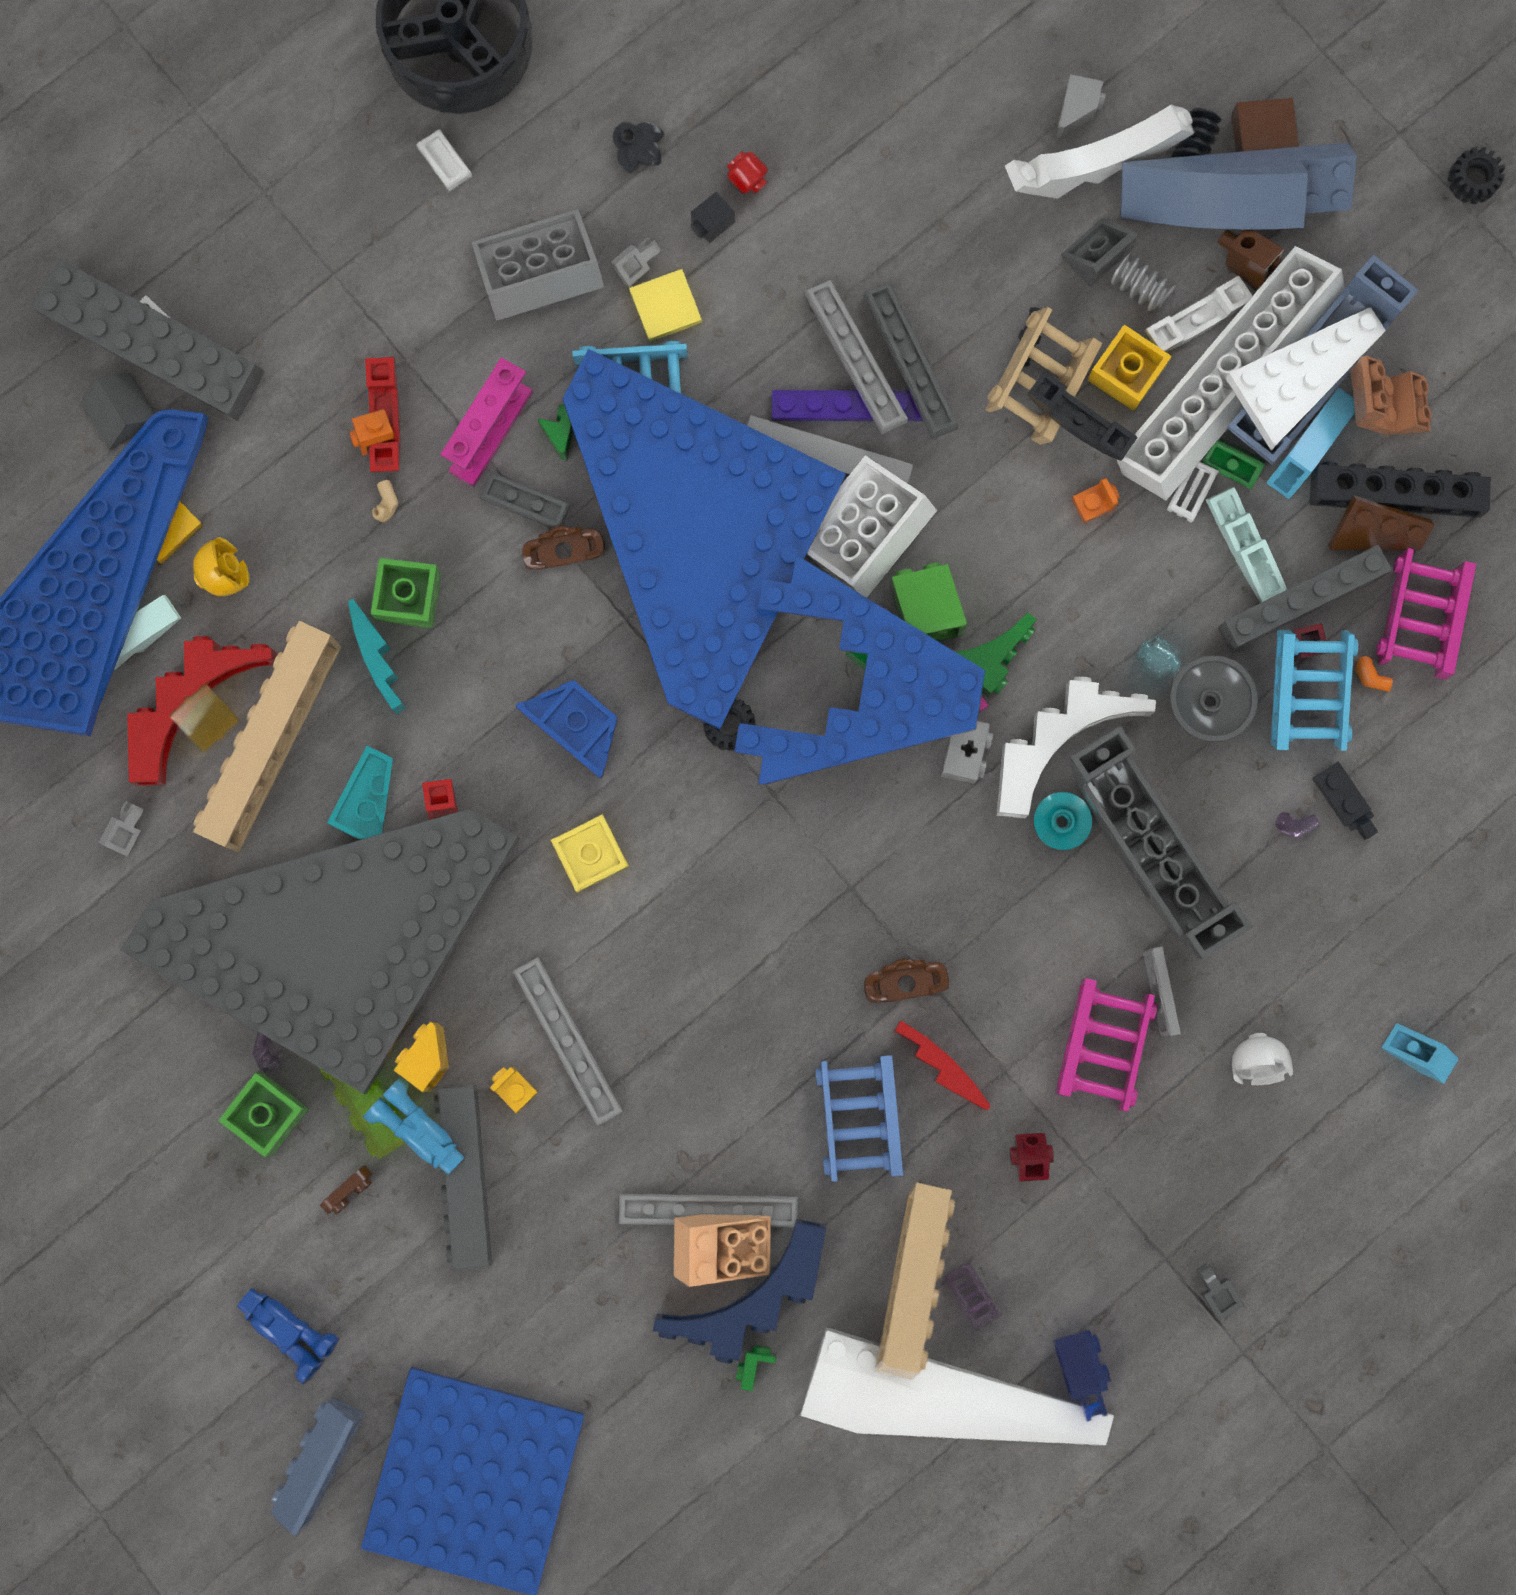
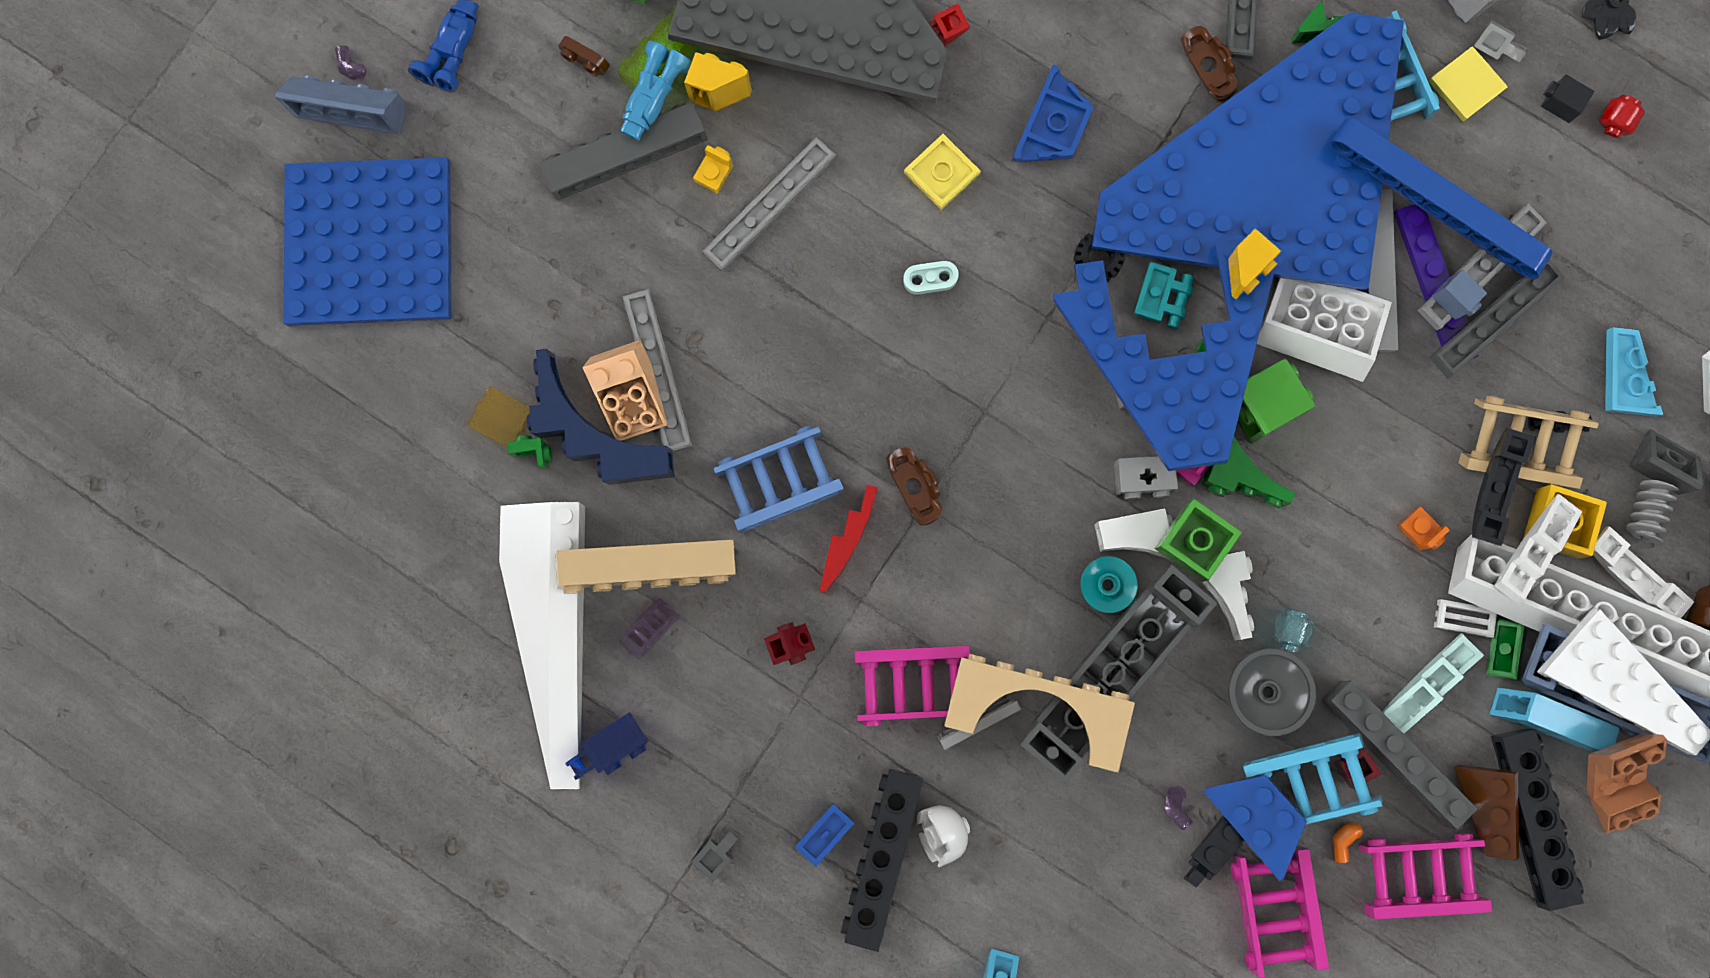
camera: 75 degrees right, 0 degrees up
(273, 1450) = (347, 66): none -> clear purple arm
(697, 899) = (929, 275): none -> light aqua plate
(706, 1390) = (499, 417): none -> clear yellow piece
(780, 376) = (1441, 198): none -> blue beam
(782, 679) = (1155, 293): none -> teal plate
(793, 584) = (1250, 260): none -> yellow slope
(883, 391) = (1460, 295): none -> sand blue brick
(1006, 259) = (1626, 375): none -> medium azure wing
(1050, 722) = (1198, 540): none -> bright green brick
(1130, 974) = (1103, 716): none -> tan arch
(1151, 405) = (1538, 548): none -> white slope
(1228, 1178) = (824, 834): none -> blue plate
(1331, 749) = (1262, 819): none -> blue wing
(1337, 1162) = (870, 934): none -> black brick
(1439, 737) = (1308, 922): none -> dark pink fence

